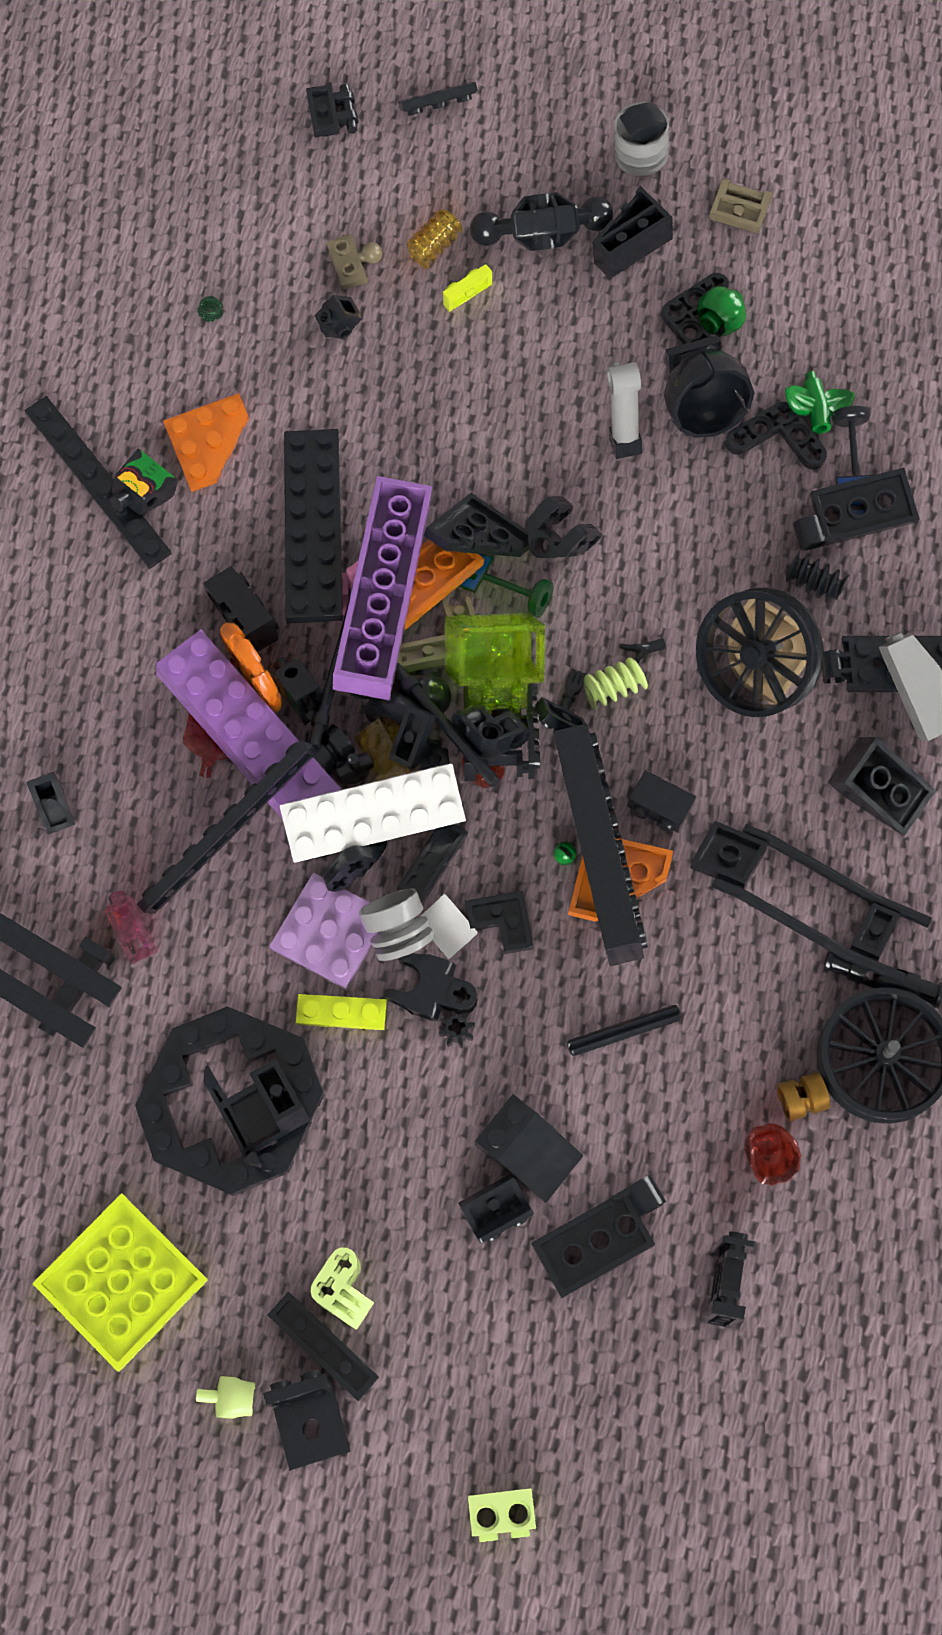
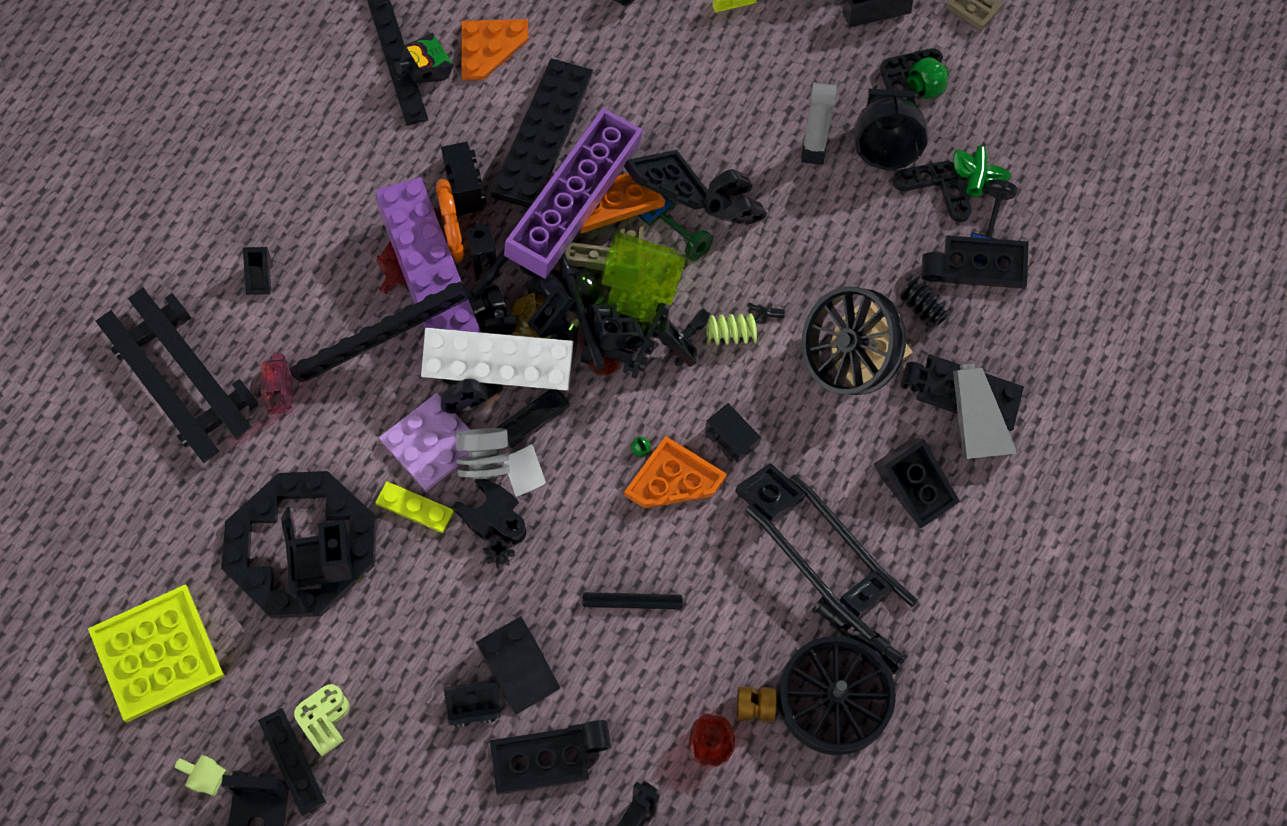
camera: 15 degrees right, 5 degrees down
(507, 913) = (575, 476): black plate -> none
(599, 845) = (667, 447): black brick -> none

